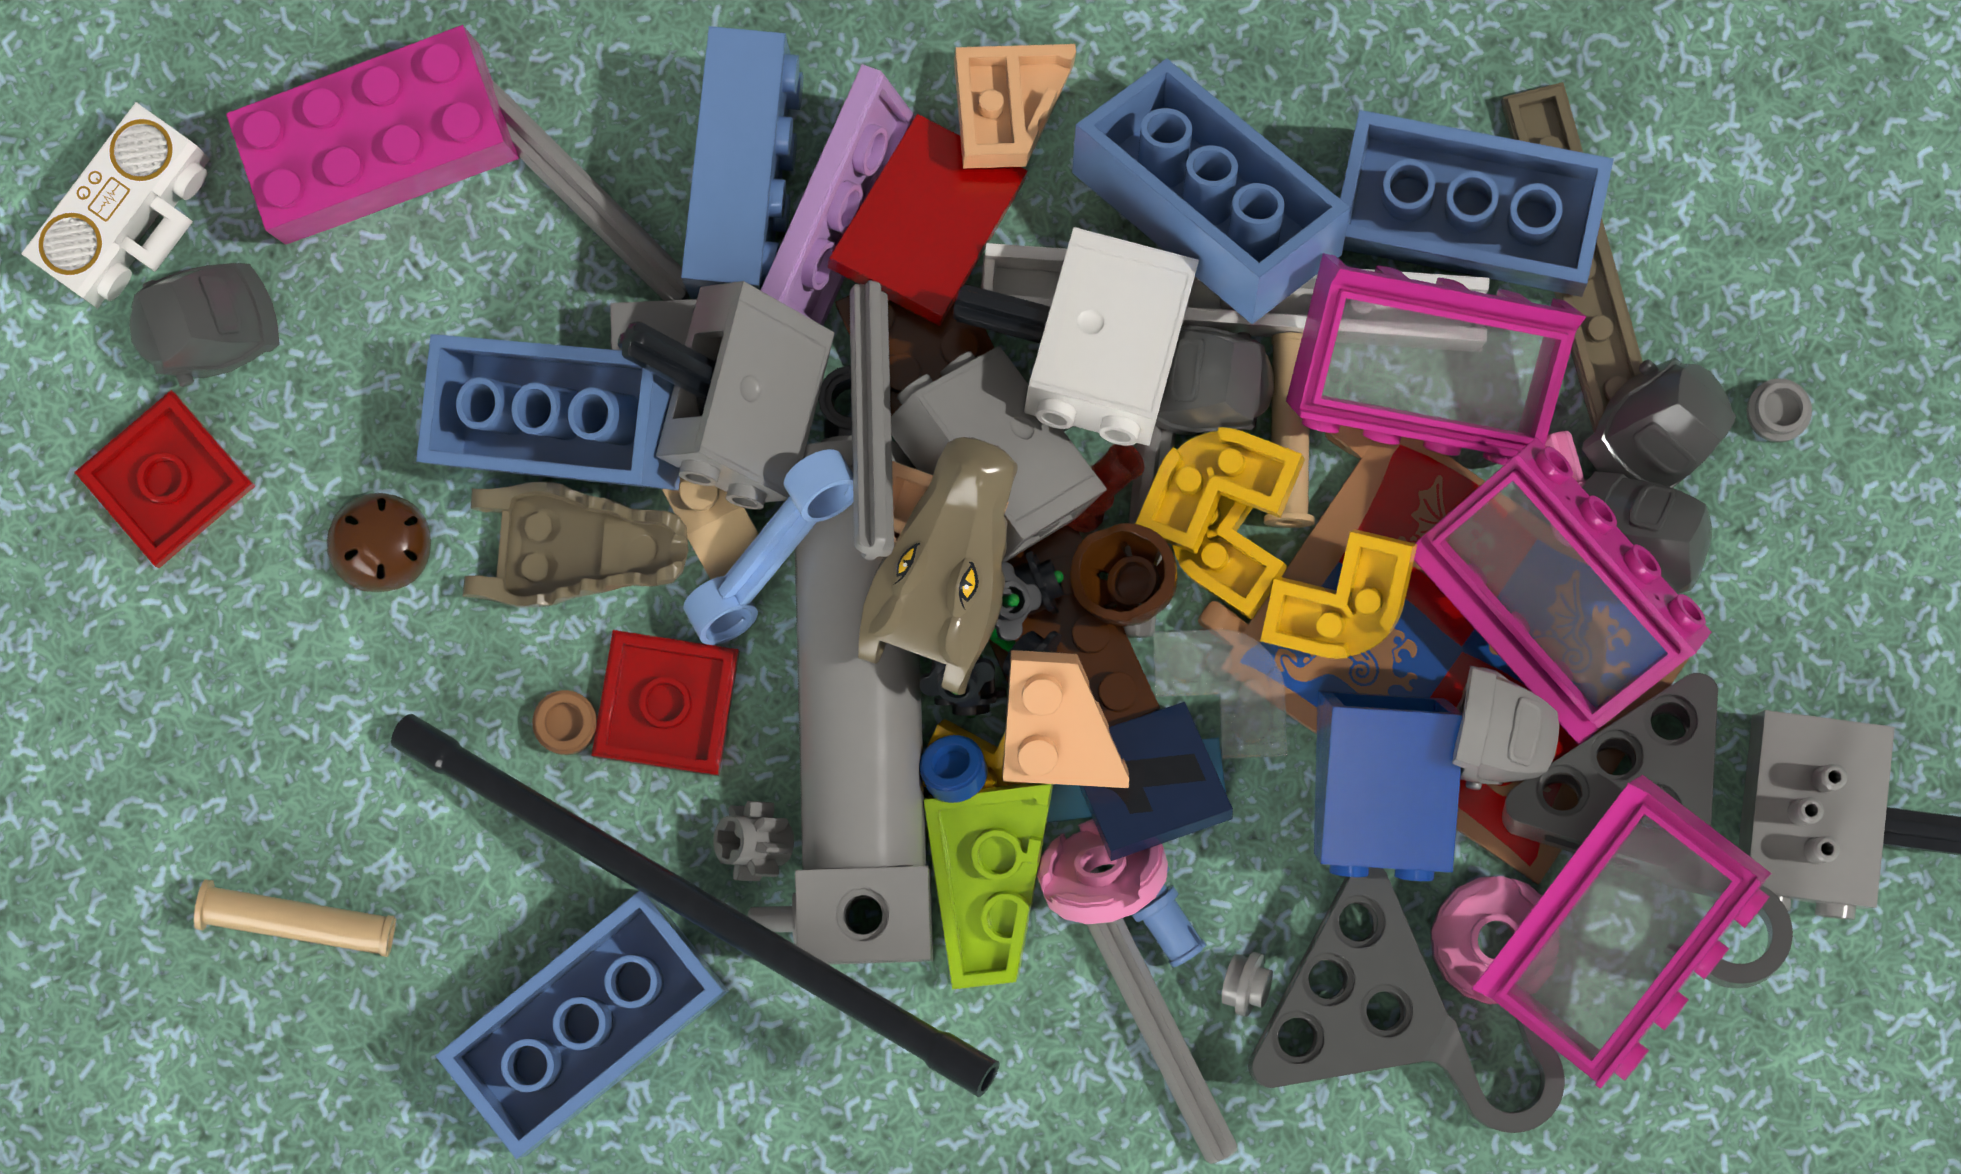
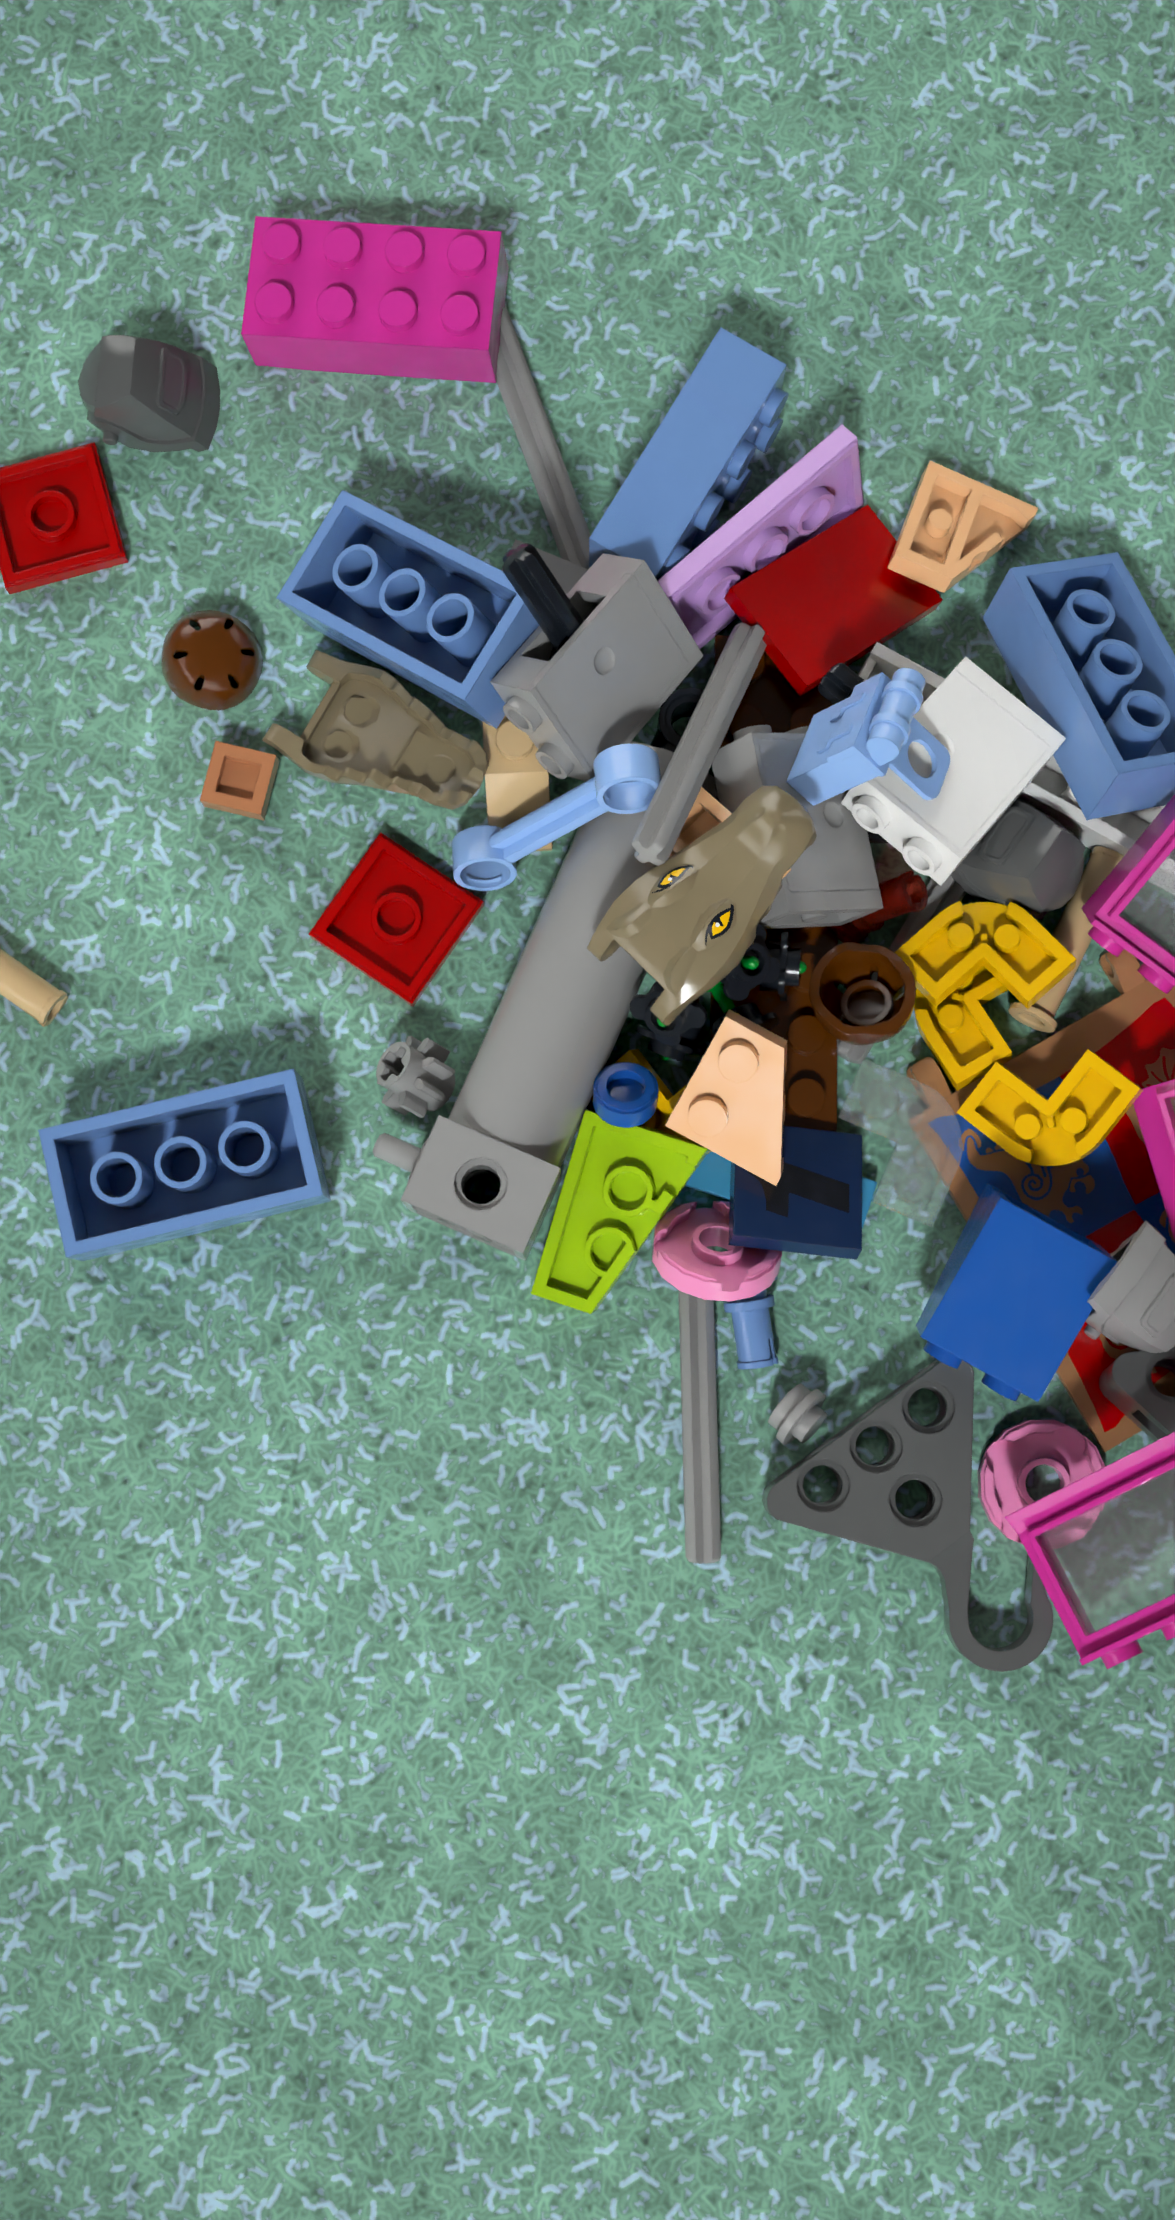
camera: 20 degrees right, 0 degrees up
(113, 204) = (125, 262): white piece -> none
(459, 643) = (239, 780): none -> nougat plate
(565, 722) = (299, 894): medium nougat tile -> none
(938, 1049) = (490, 1336): black piece -> none
(1019, 348) = (865, 737): none -> light blue piece

